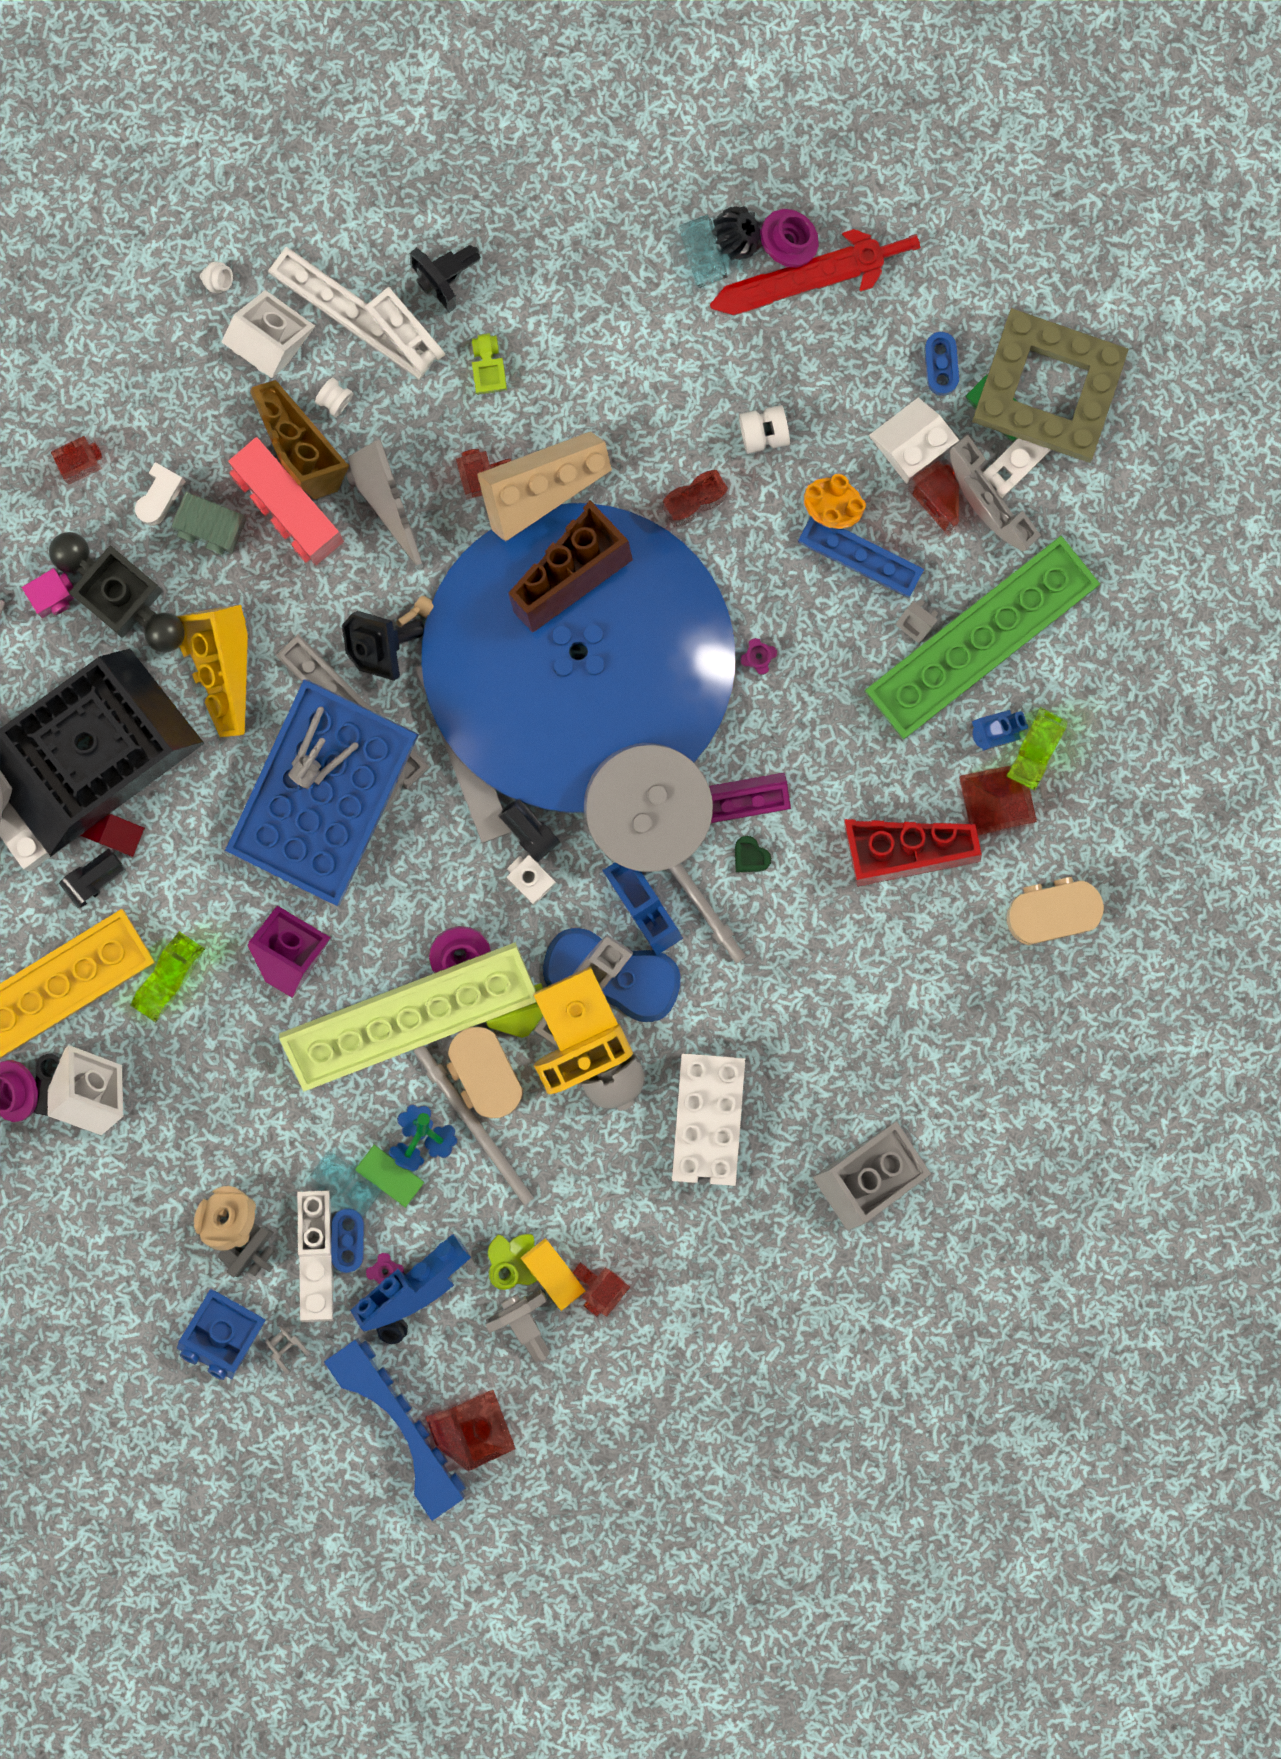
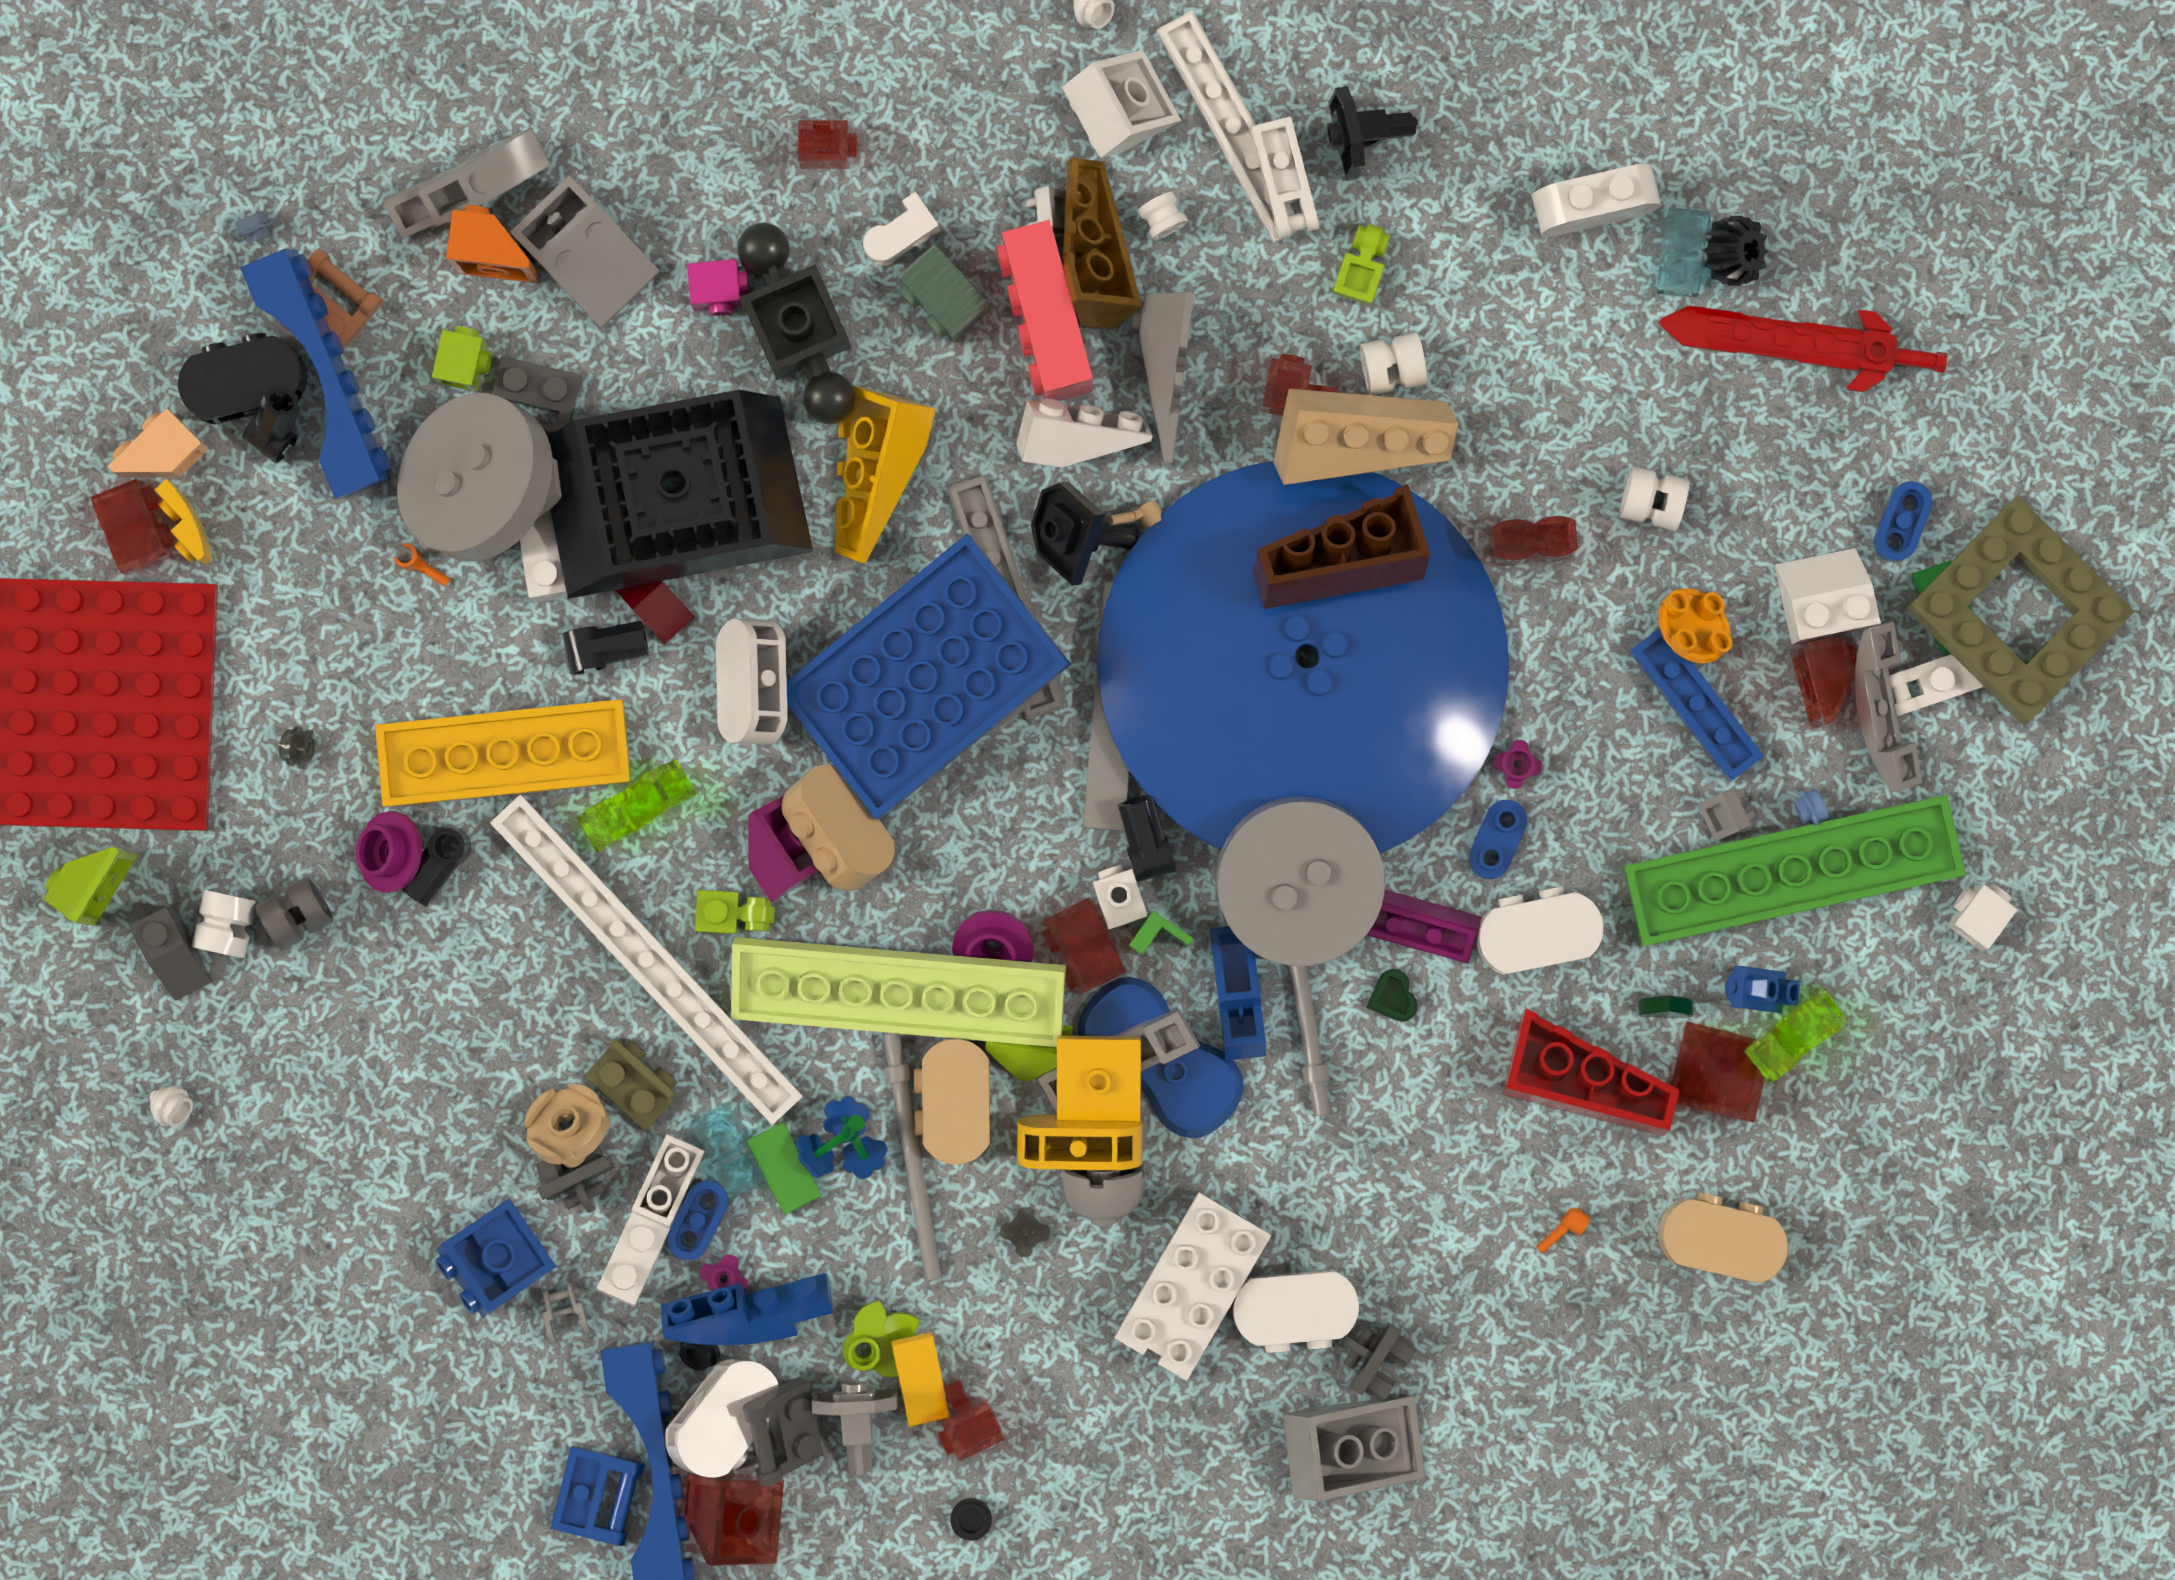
camera: 25 degrees right, 0 degrees up
(86, 1091) = (476, 895): white slope -> none
(205, 853) = (751, 681): none -> white brick
(225, 1079) = (646, 959): none -> white plate
(252, 427) = (1049, 206): none -> light grey tile
(257, 1168) = (633, 1083): none -> olive bracket
(261, 1021) = (721, 911): none -> lime plate
(305, 767) = (918, 639): light grey plant -> none
(313, 925) = (837, 829): none -> tan brick
(343, 578) = (1070, 435): none -> white slope
(359, 1464) = (583, 1493): none -> blue plate
(431, 1366) = (710, 1429): none -> white brick
(481, 1349) = (793, 1429): none -> dark grey plate
(521, 923) = (1084, 946): none -> clear red brick
(546, 412) = (1393, 364): none -> white wheel
(562, 887) = (1151, 928): none -> bright green panel
(584, 1135) = (1037, 1231): none -> clear smoke plate
(626, 243) = (1596, 200): none -> white brick
(634, 1353) = (971, 1519): none -> black plate
(770, 714) = (1497, 839): none -> blue plate
(786, 1101) = (1295, 1309): none -> white brick
(789, 238) = (1793, 285): magenta piece -> none
(828, 763) = (1539, 931): none -> white brick
(862, 1094) = (1368, 1377): none -> dark grey hips
(940, 772) = (1666, 1007): none -> dark green tile
(947, 948) = (1573, 1220): none -> orange hand
(973, 589) = (1811, 808): none -> medium blue plate
(1124, 605) = (1982, 915): none -> white brick

